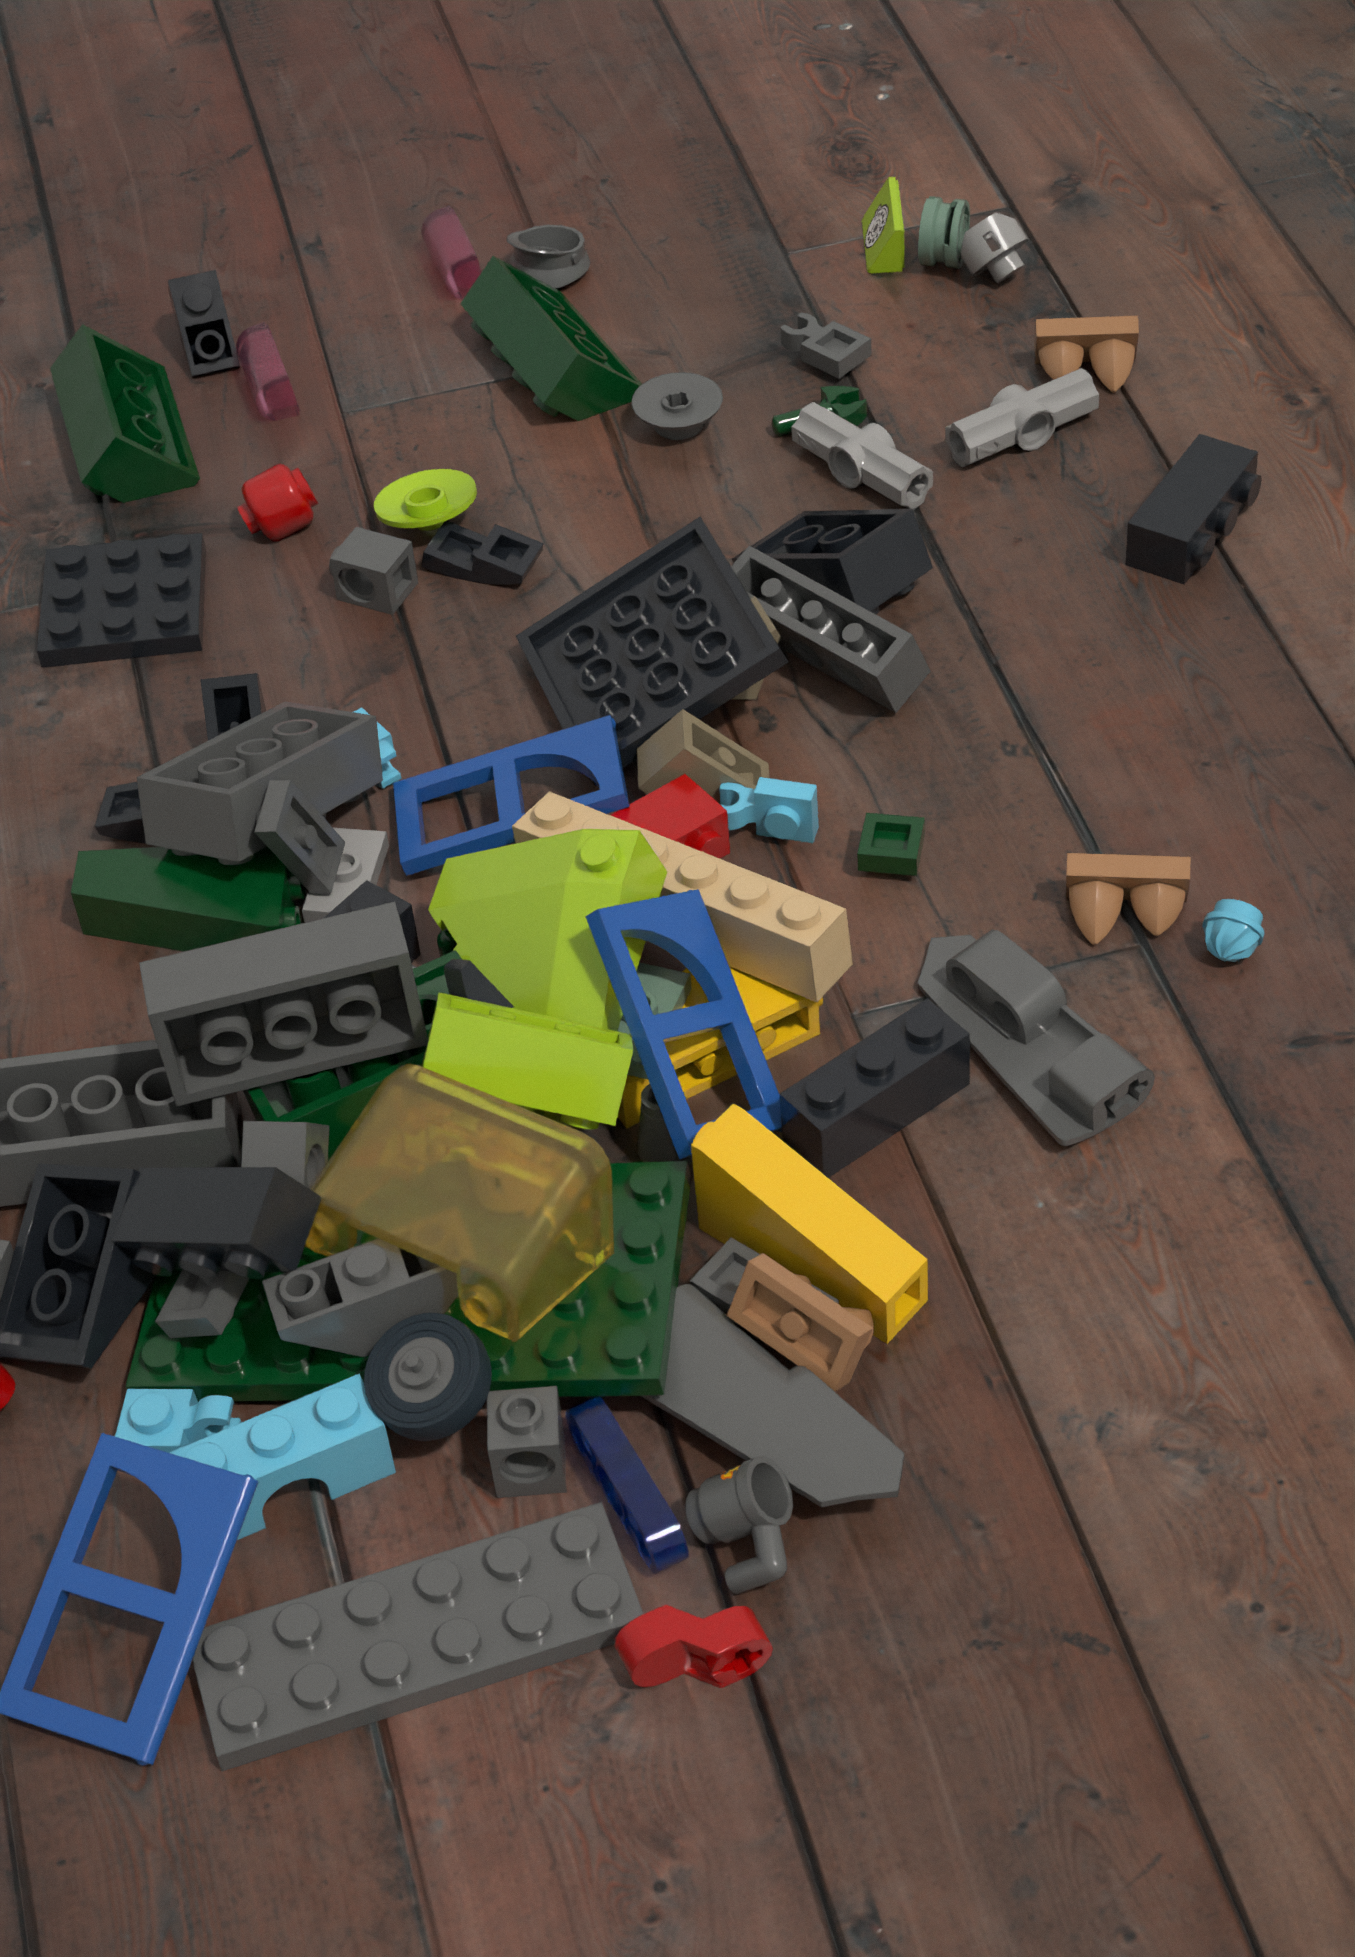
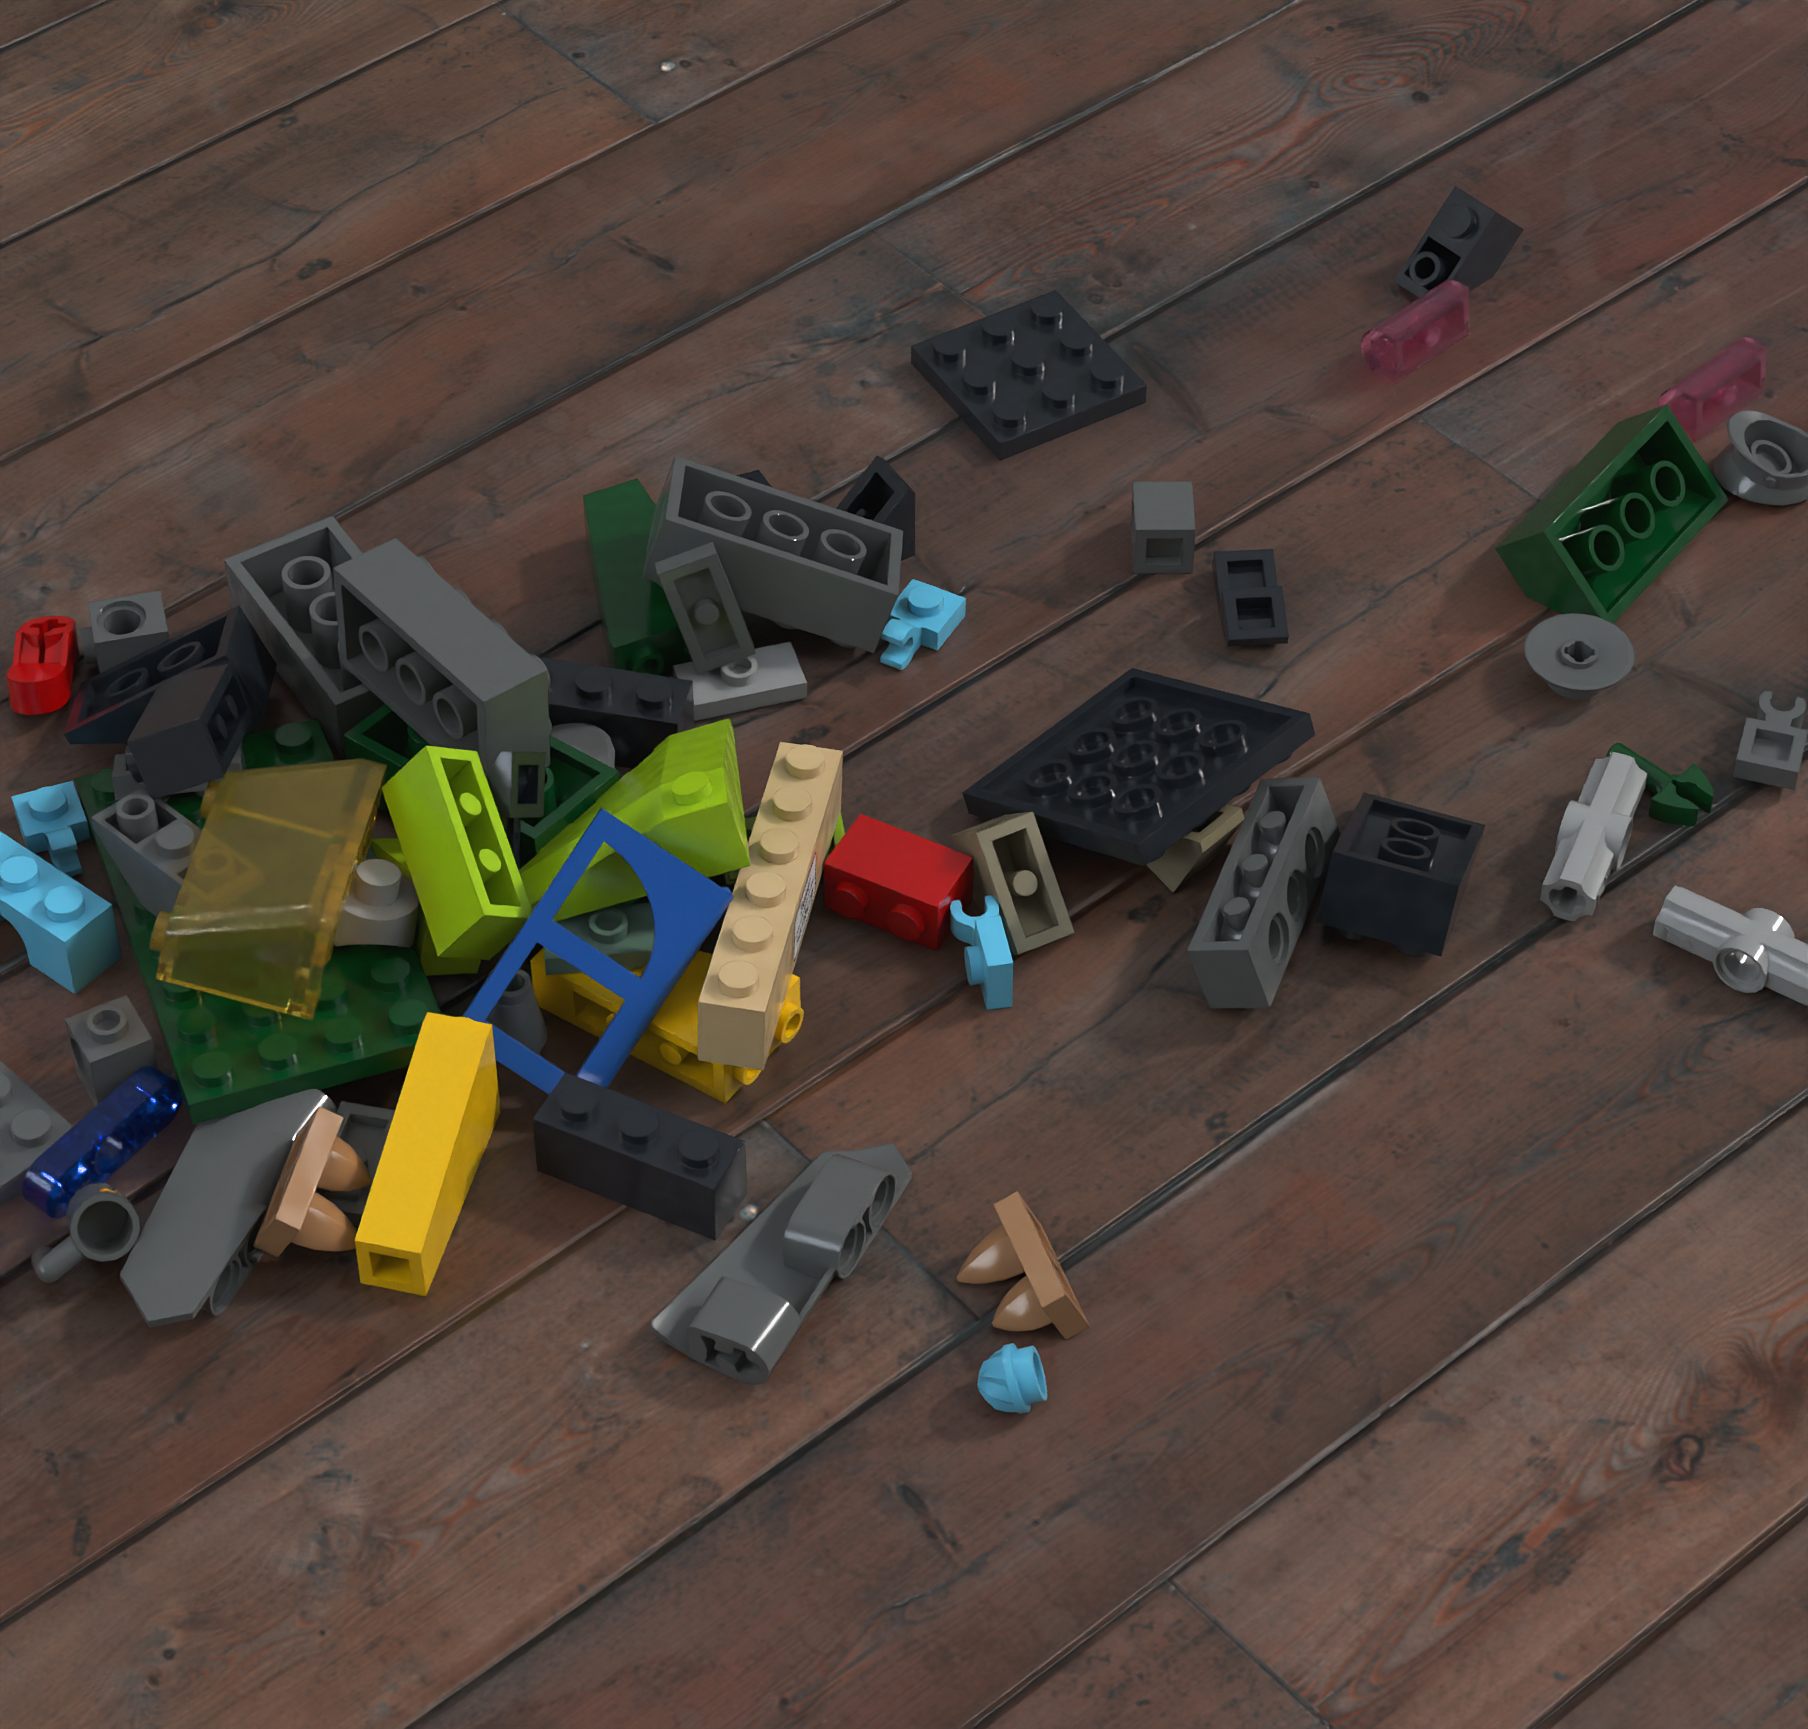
camera: 60 degrees right, 0 degrees up
(121, 419) = (1275, 259): dark green slope -> none
(277, 502) = (1219, 417): red head -> none
(292, 1147) = (302, 738): dark grey brick -> none
(425, 499) = (1291, 520): lime dish -> none
(427, 1376) = (110, 948): black wheel -> none
(584, 748) = (973, 768): blue window -> none
(891, 844) = (995, 1062): dark green plate -> none
(1192, 509) = (1686, 1148): black brick -> none

